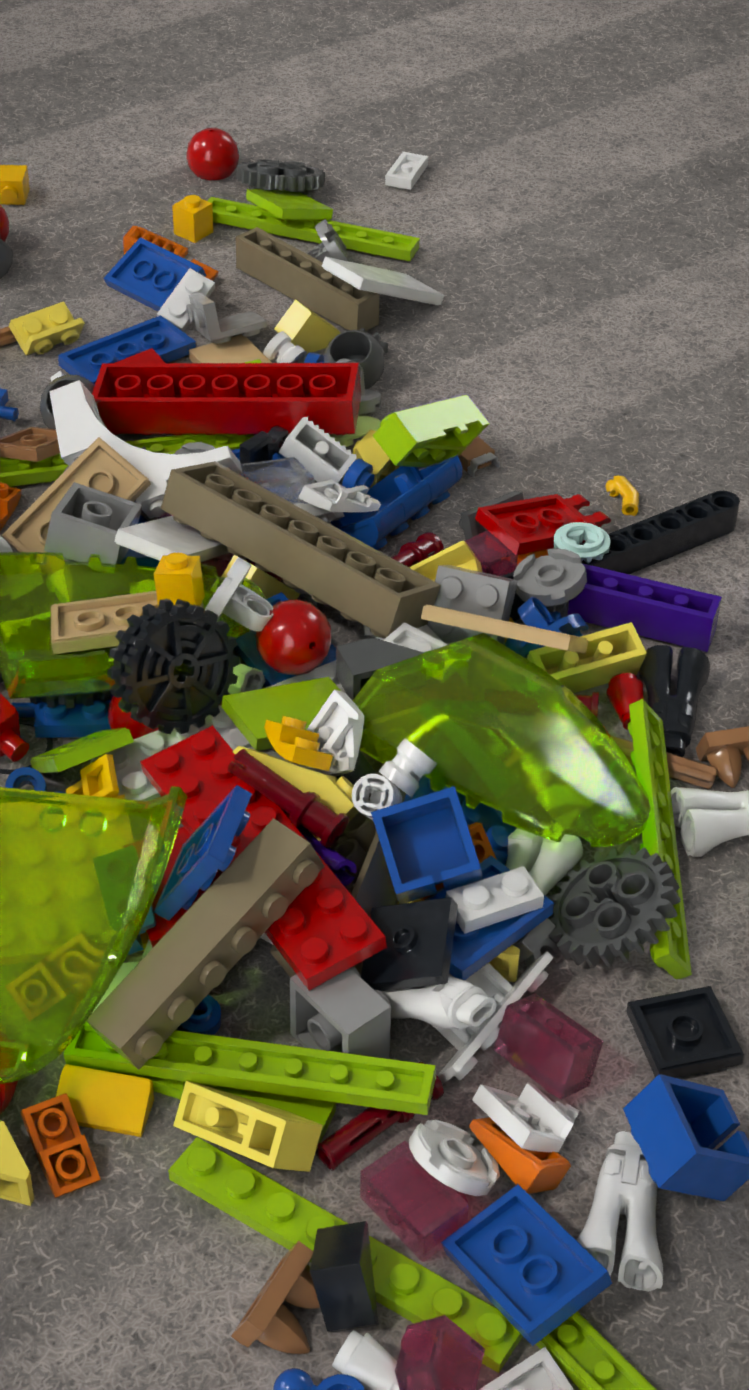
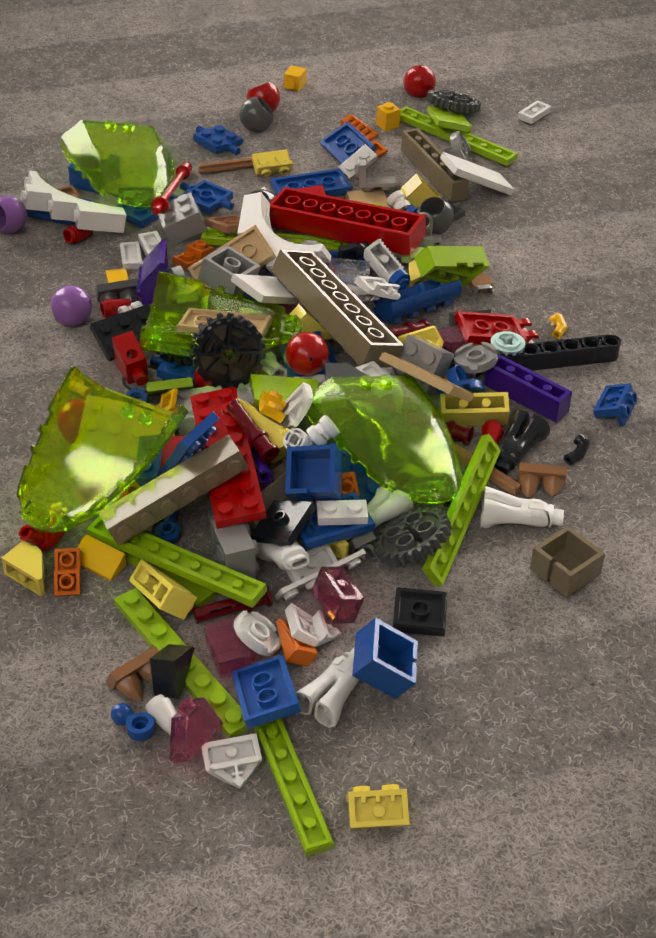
camera: 20 degrees right, 0 degrees up
(179, 578) = (256, 309): yellow brick -> none
(239, 601) = (277, 324): white tile -> none

